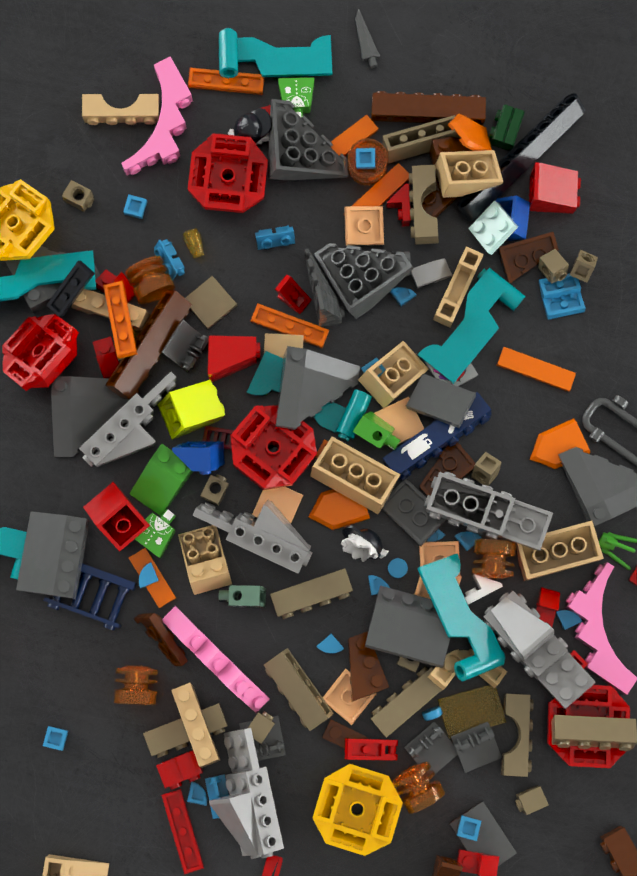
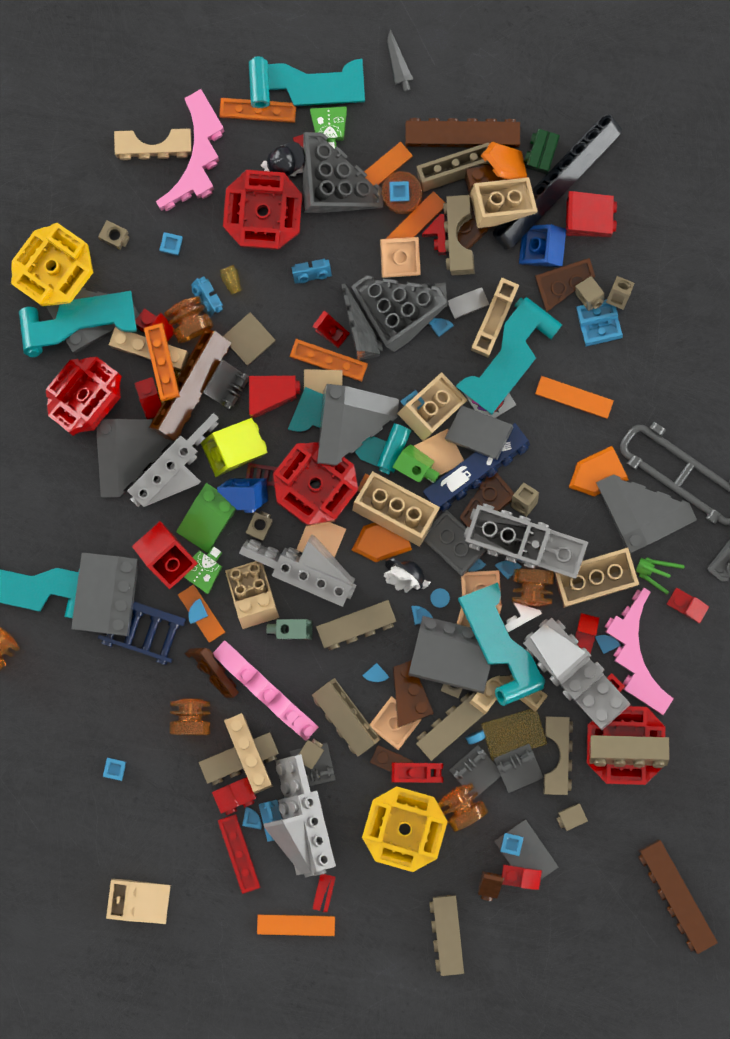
camera: 10 degrees right, 5 degrees up
(70, 289) = (111, 332): black tile -> none
(493, 227) = (528, 256): light aqua plate -> none

